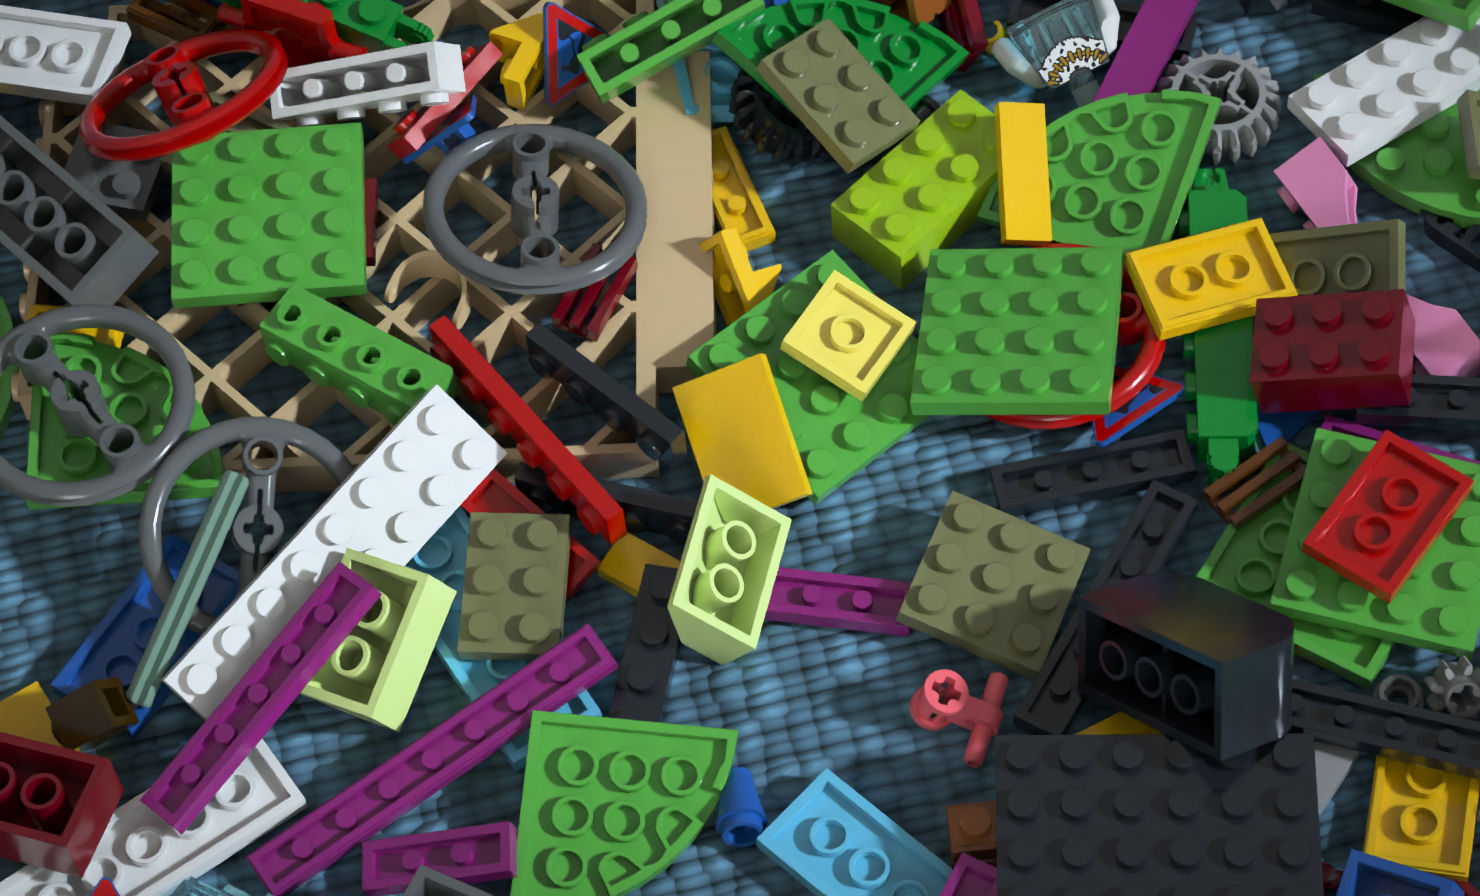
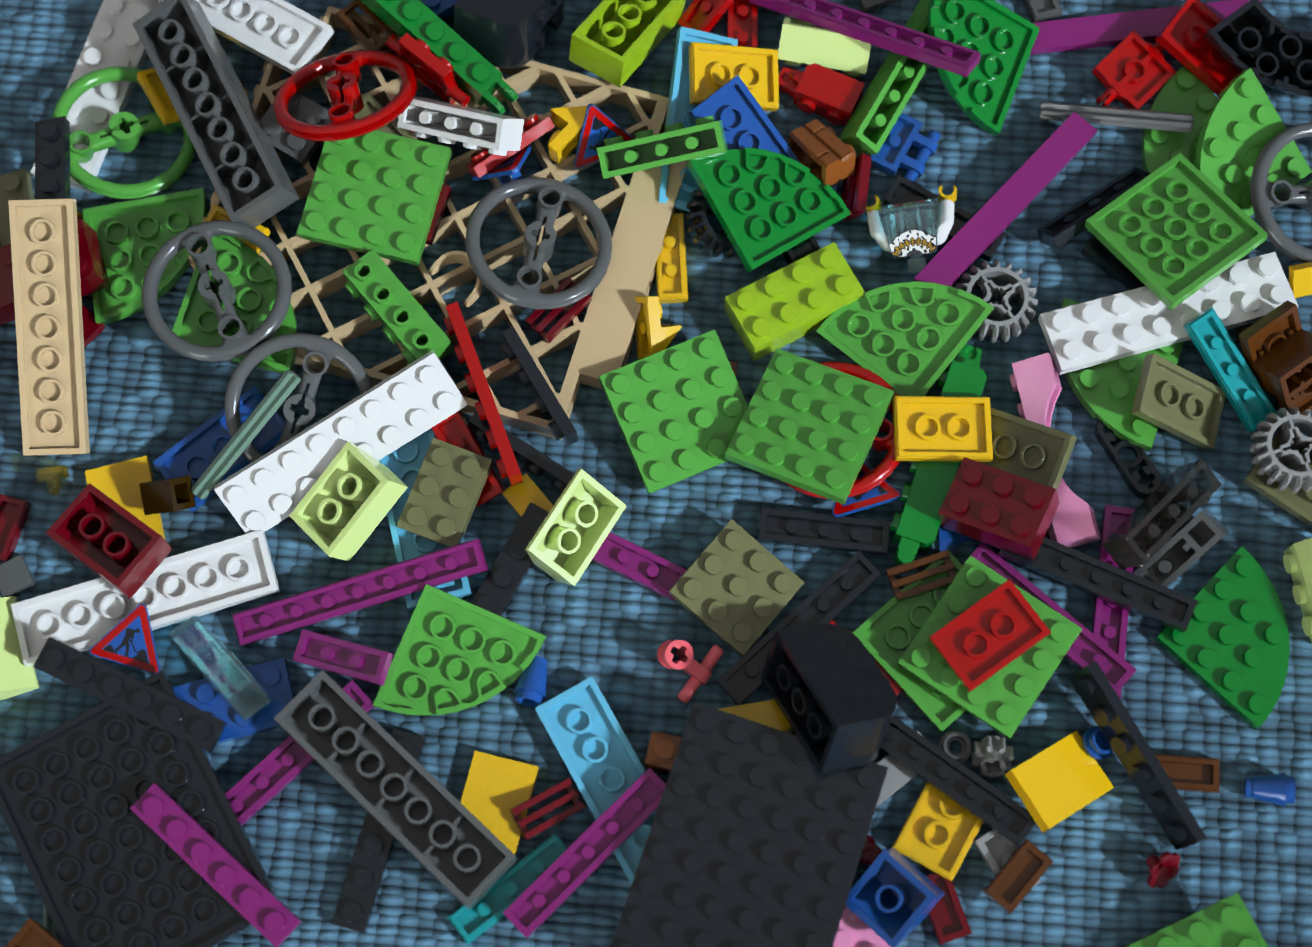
camera: 15 degrees right, 15 degrees up
(260, 697) = (266, 521): magenta plate -> none
(743, 432) = (615, 441): yellow tile -> none
(838, 95) = (753, 225): olive plate -> none
(848, 335) = (702, 395): light yellow plate -> none
(1022, 174) = (851, 316): yellow tile -> none

